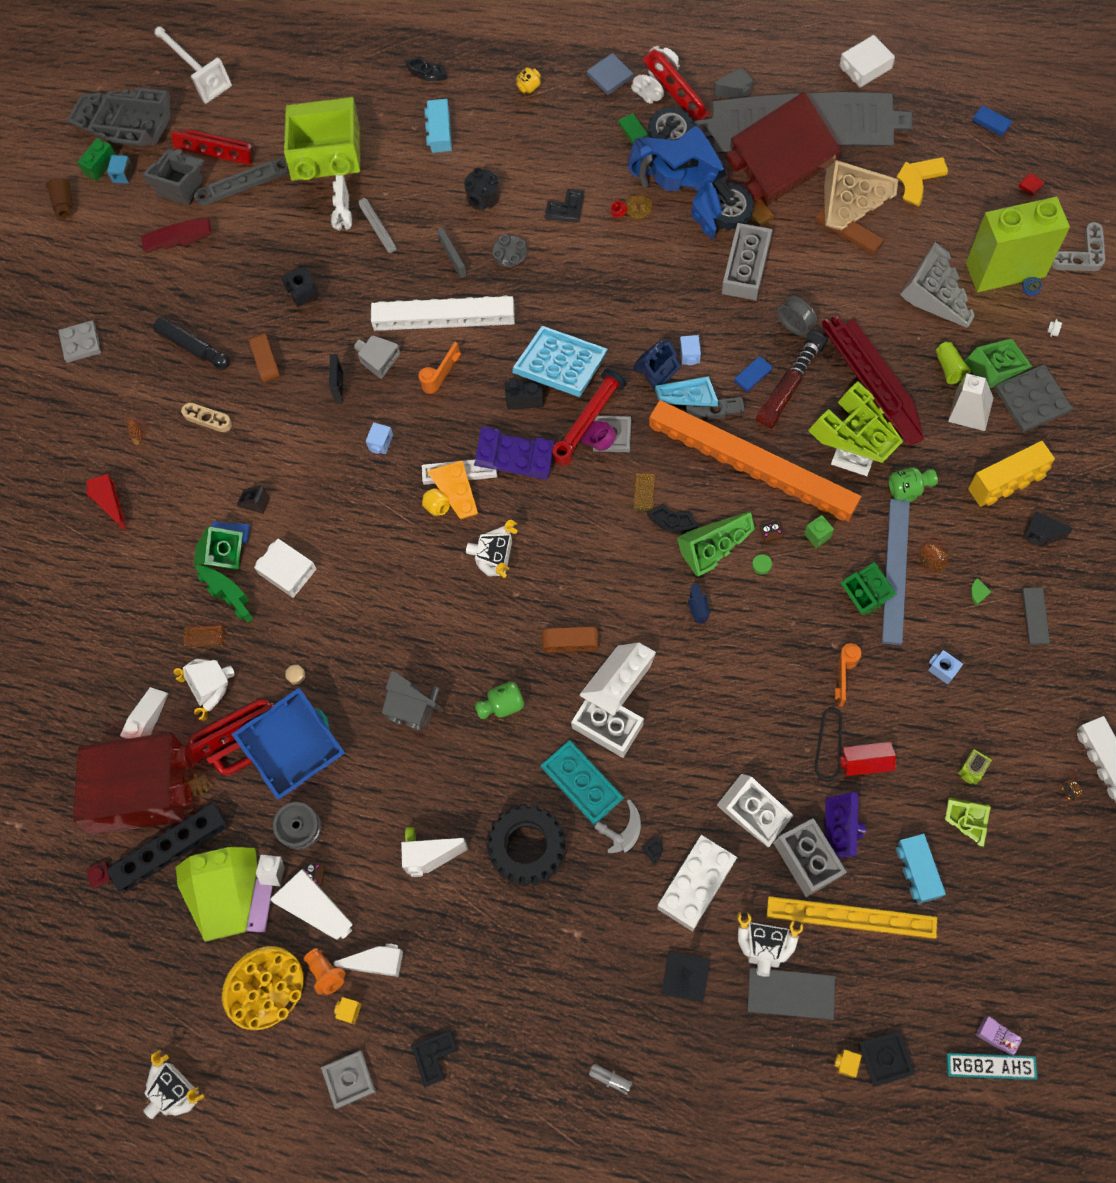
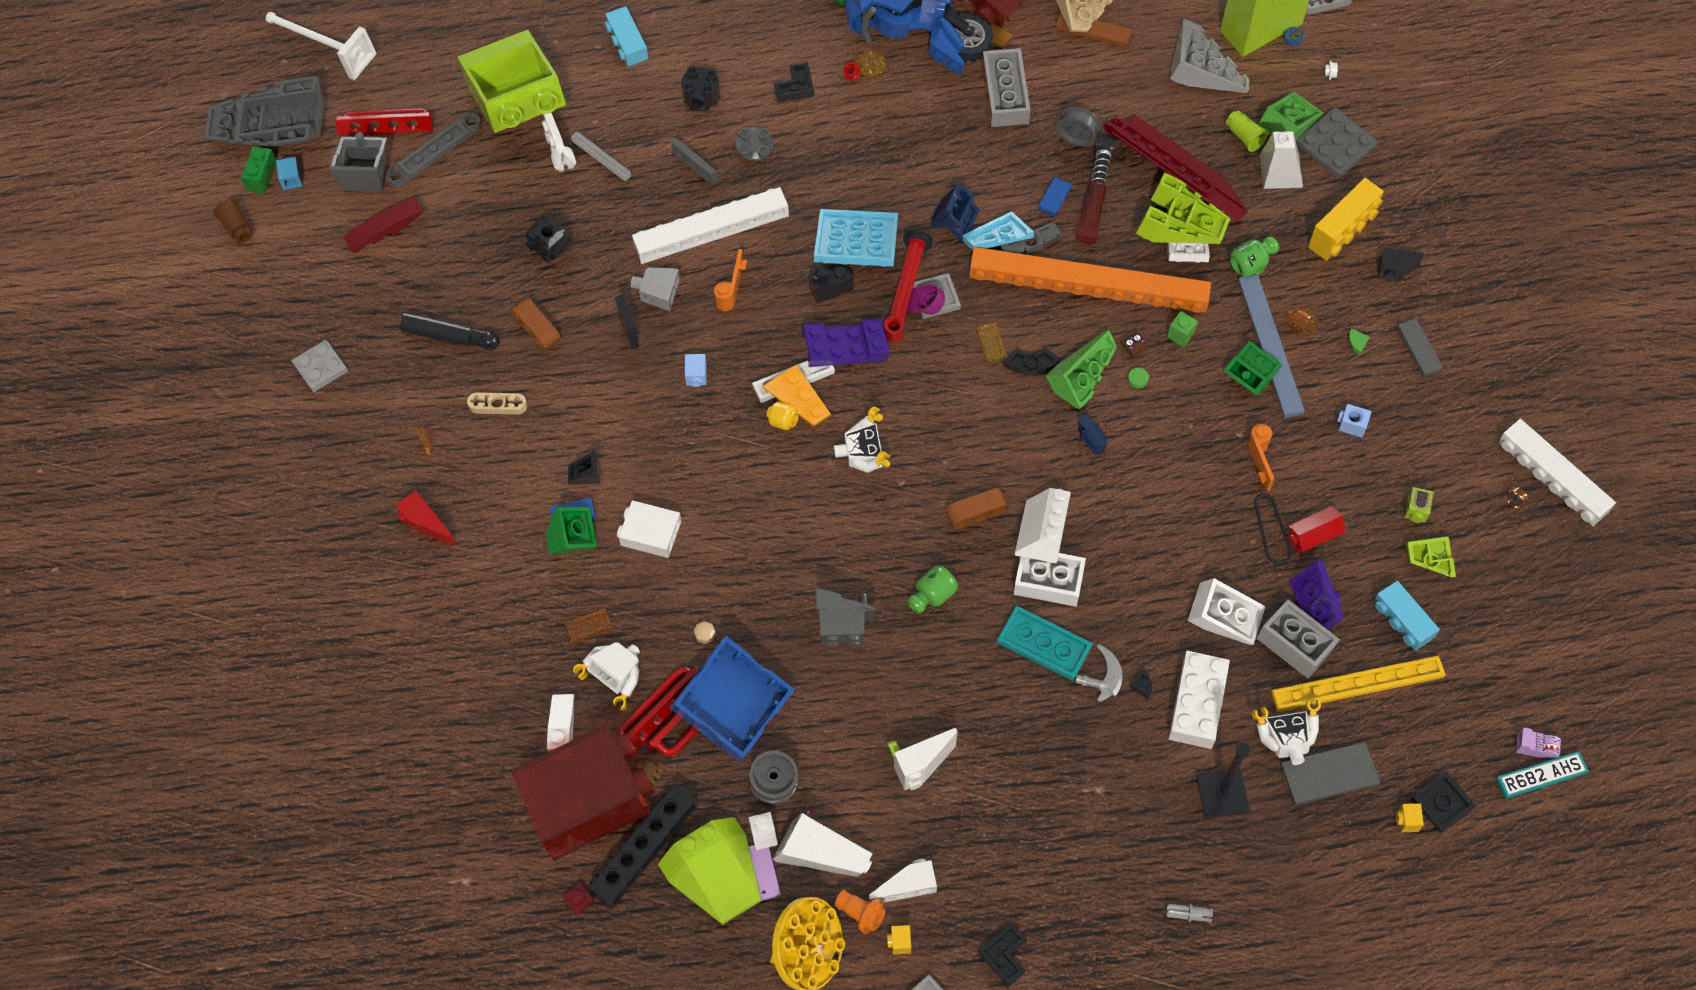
camera: 25 degrees left, 5 degrees down
(224, 588) = (589, 567): green slope -> none
(521, 818) = (1017, 692): black tyre -> none
(690, 349) = (983, 190): light blue brick -> none

